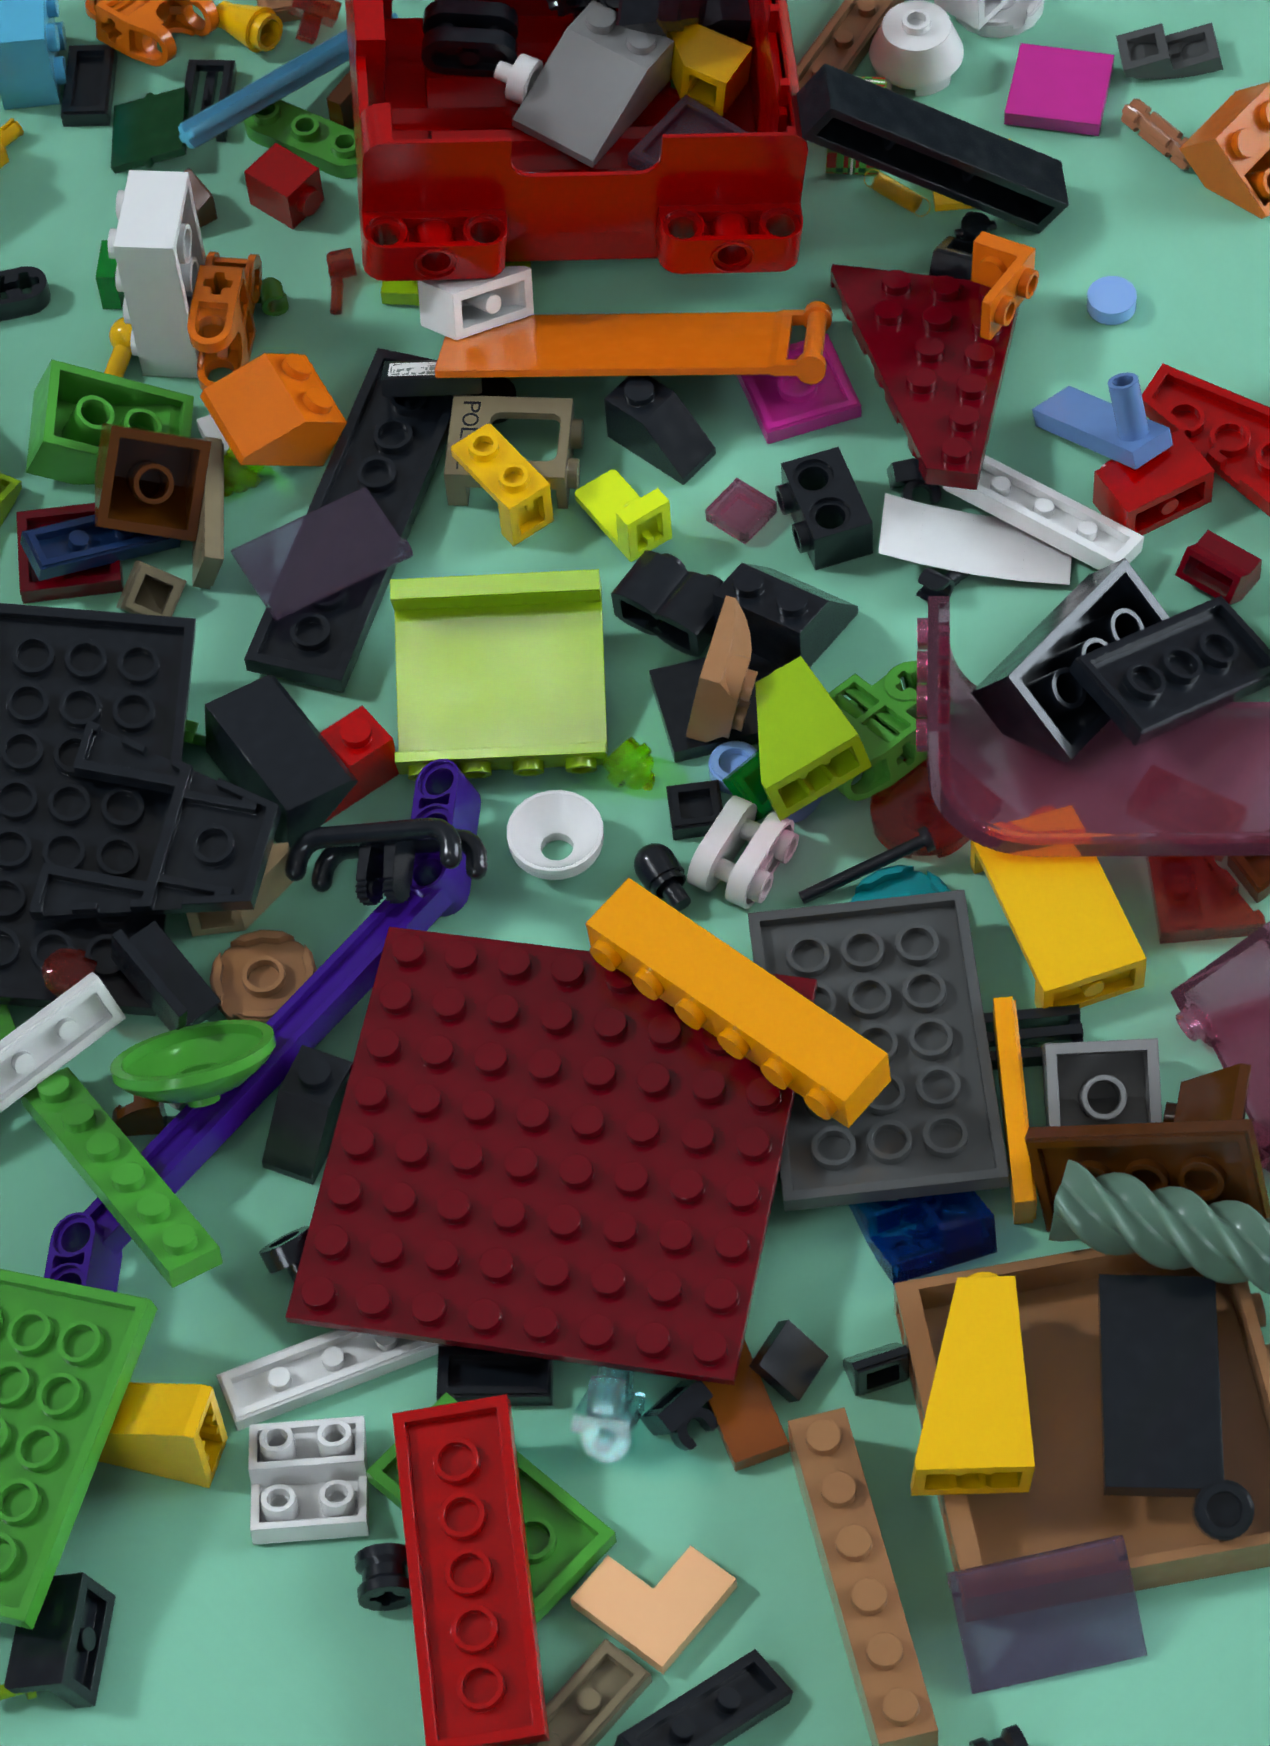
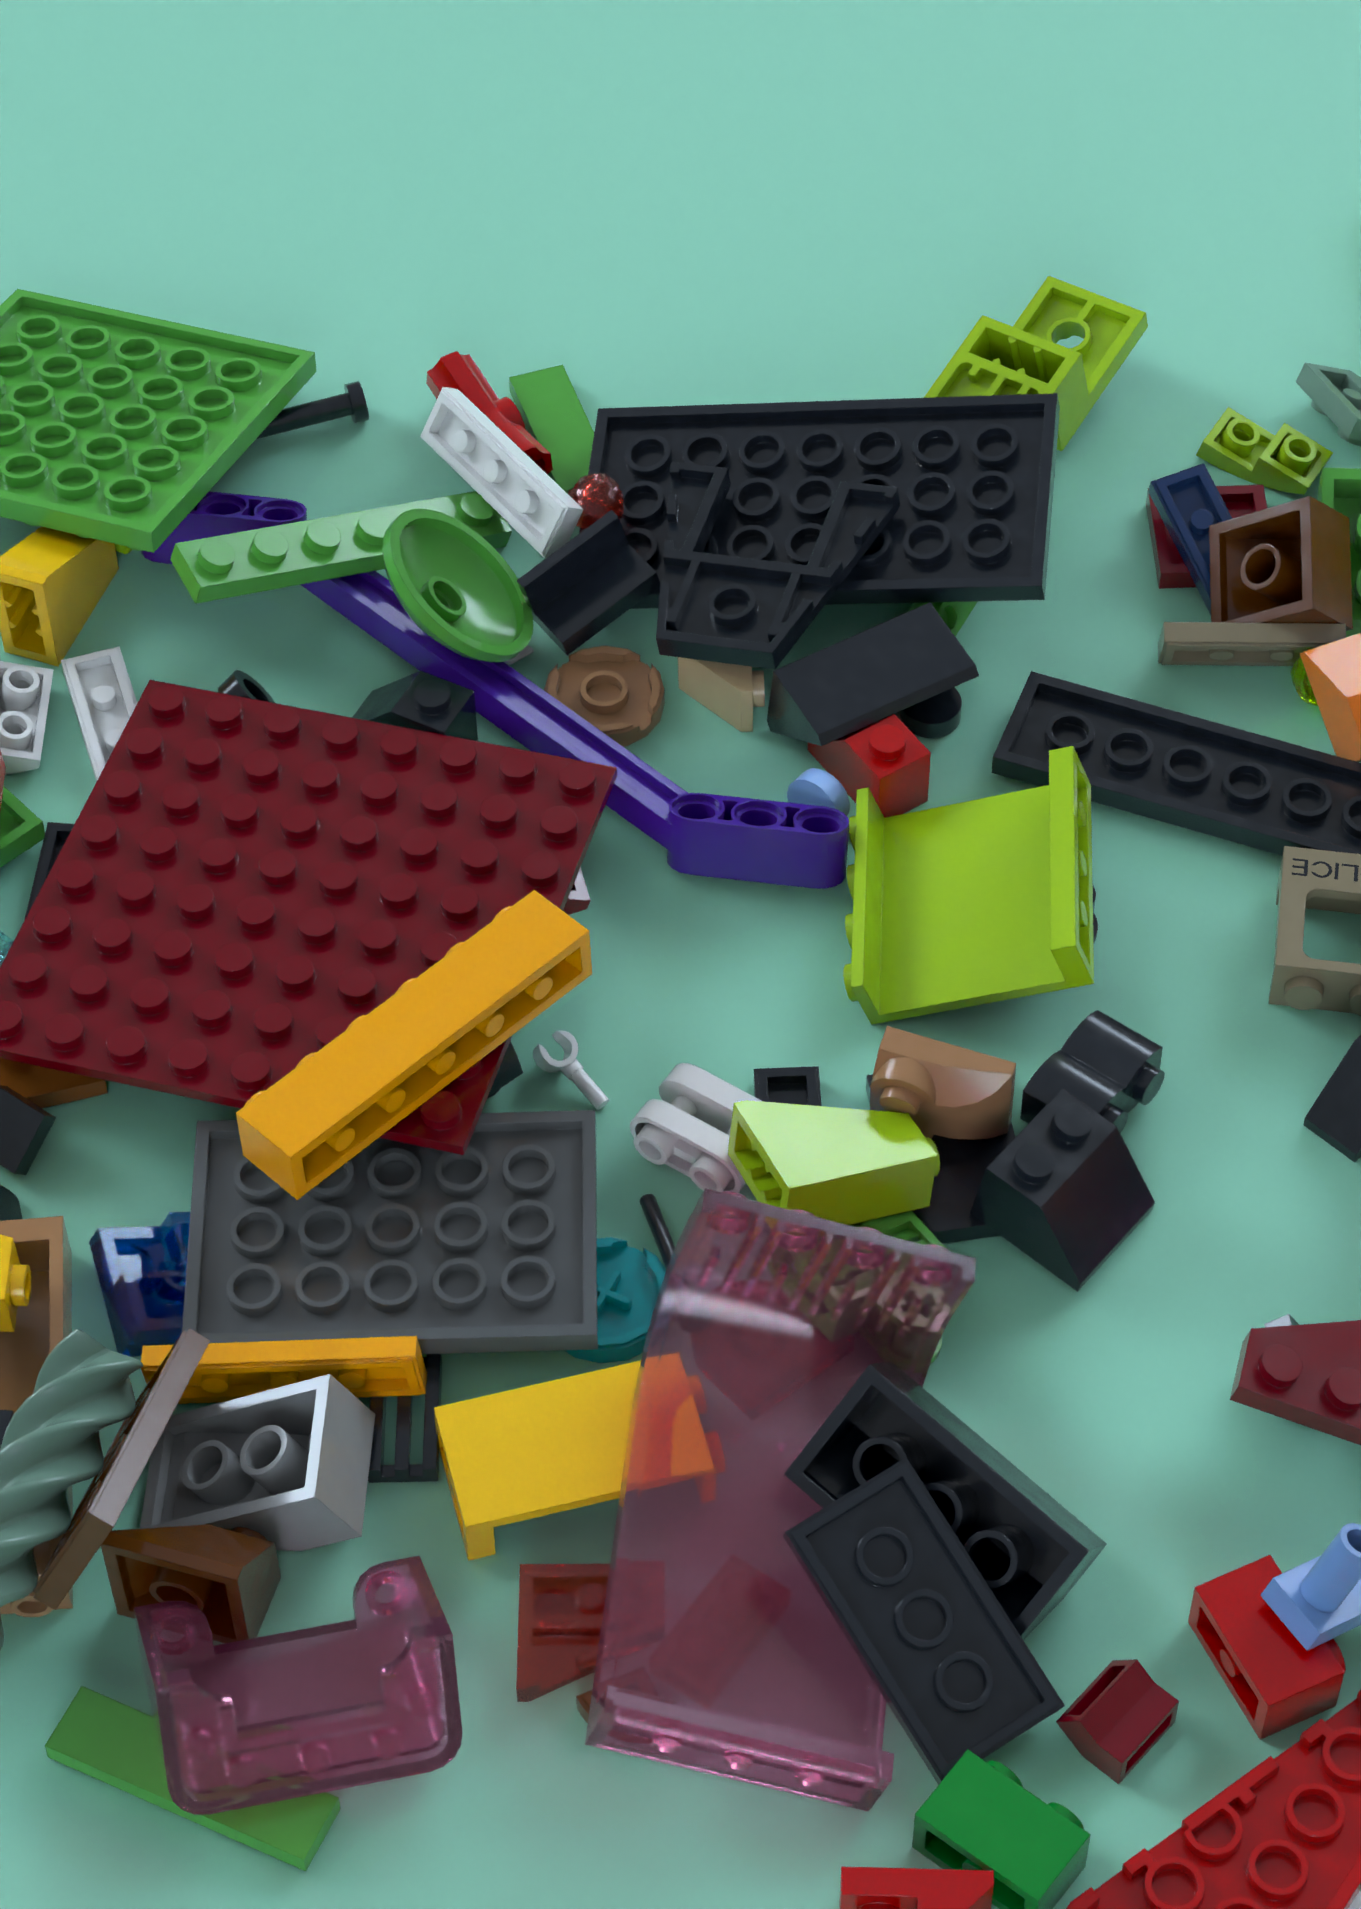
camera: 90 degrees right, 5 degrees down
(150, 591) = (1141, 598): dark tan slope -> none
(321, 553) = (1178, 741): clear purple piece -> none
(384, 854) = (707, 760): black piece -> none
(388, 800) = (819, 789): none -> light blue tile
(509, 479) = (1272, 905): yellow bracket -> none
(554, 817) = (747, 926): white piece -> none
(624, 516) = (1232, 1051): neon yellow bracket -> none
(631, 766) = (851, 1032): clear neon green plate -> none
(662, 874) = (699, 1045): black cylinder -> none
(741, 511) = (1249, 1175): clear pink tile -> none
(825, 509) = (1241, 1268): black brick -> none
(938, 584) = (1111, 1384): black hand -> none
(968, 543) = (1182, 1432): white sticker -> none
(1051, 516) = (1218, 1516): white plate -> none

